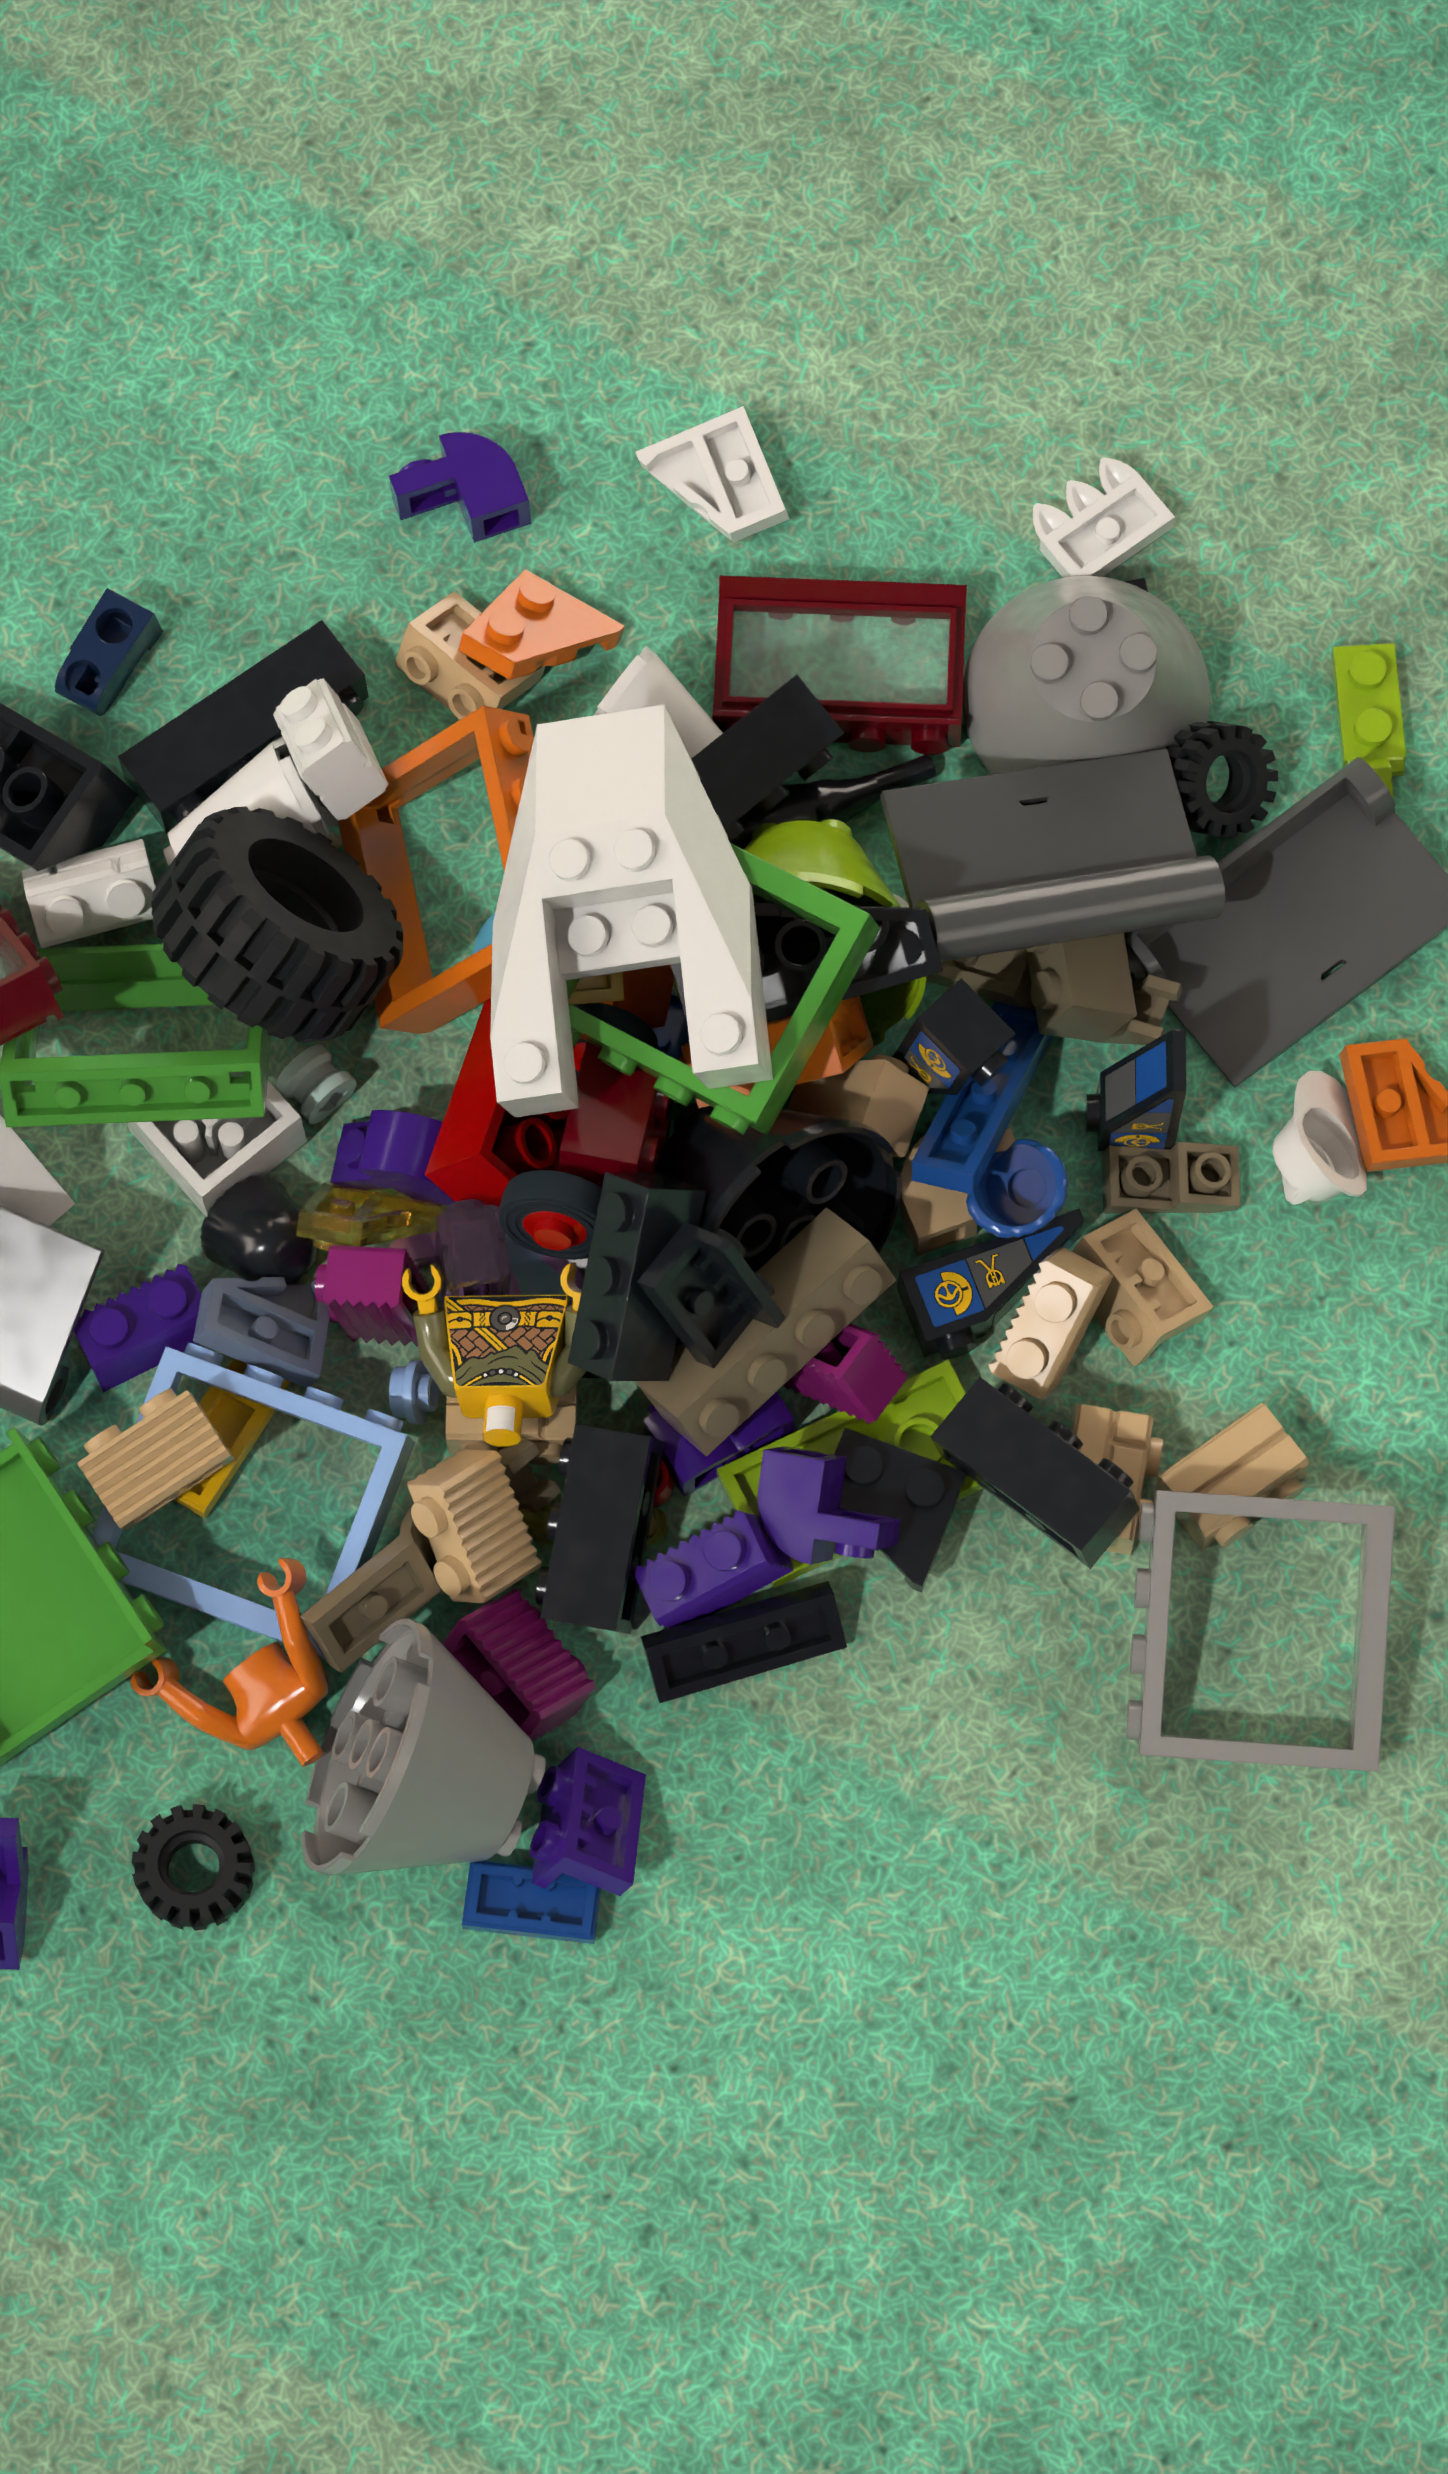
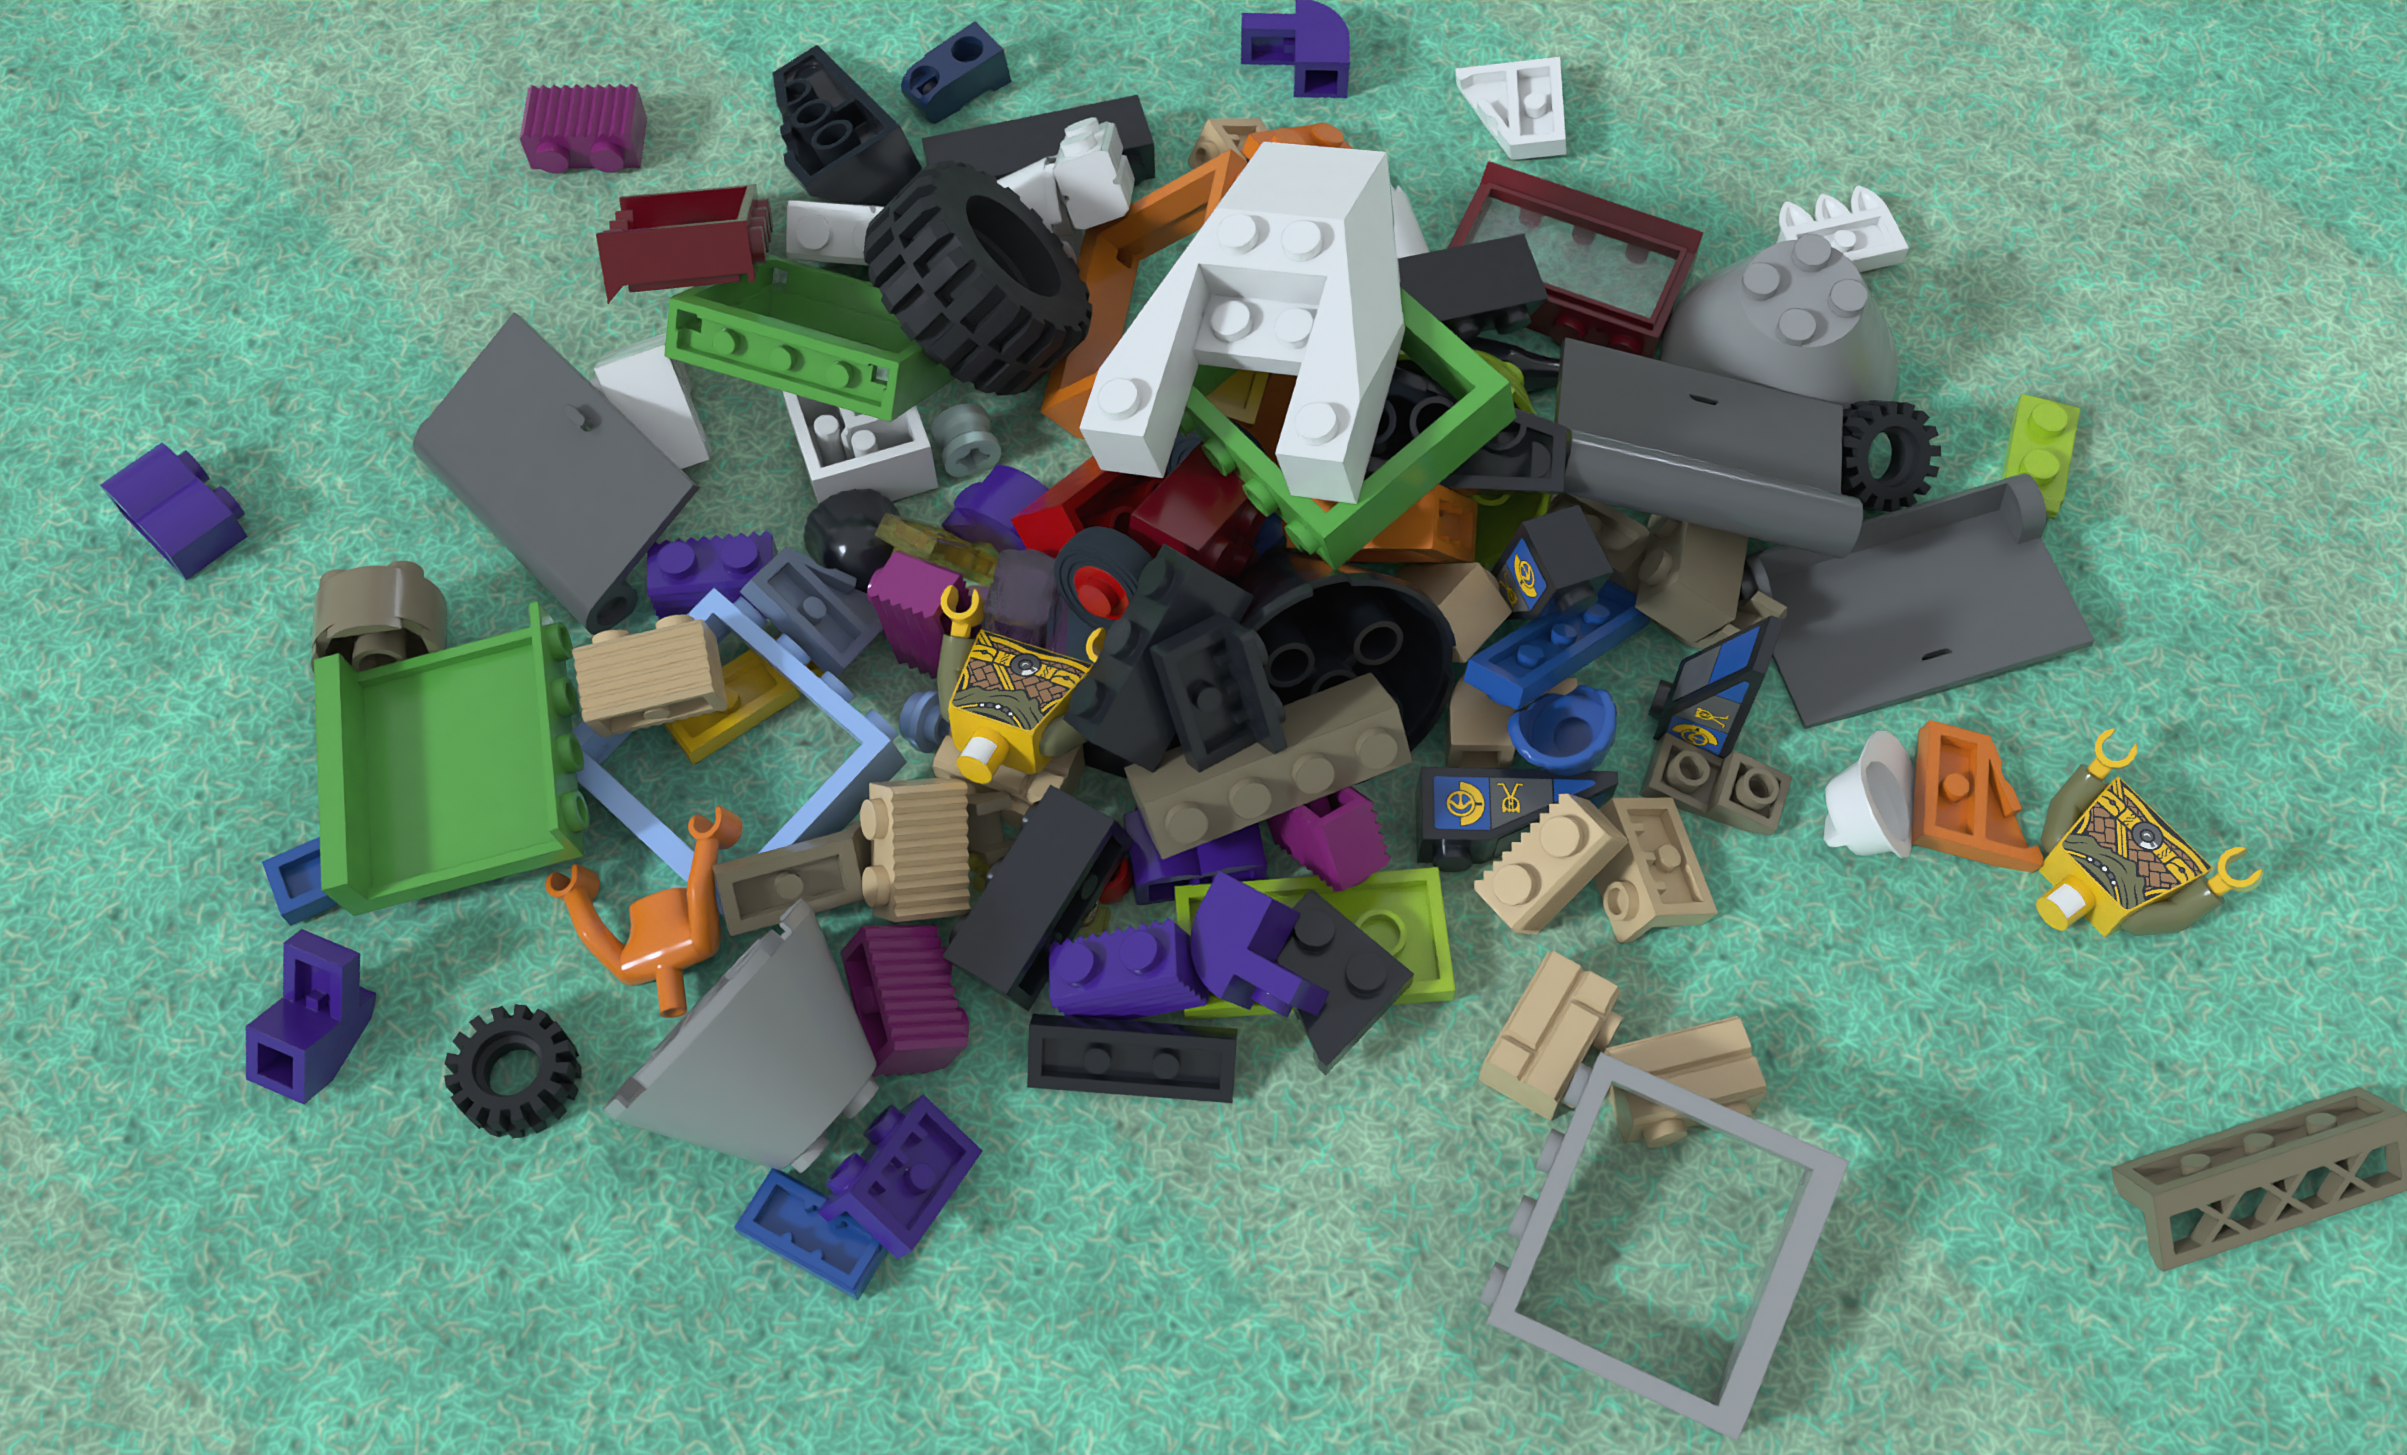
camera: 20 degrees right, 10 degrees down
(1037, 1470) = (1485, 995): black brick -> none

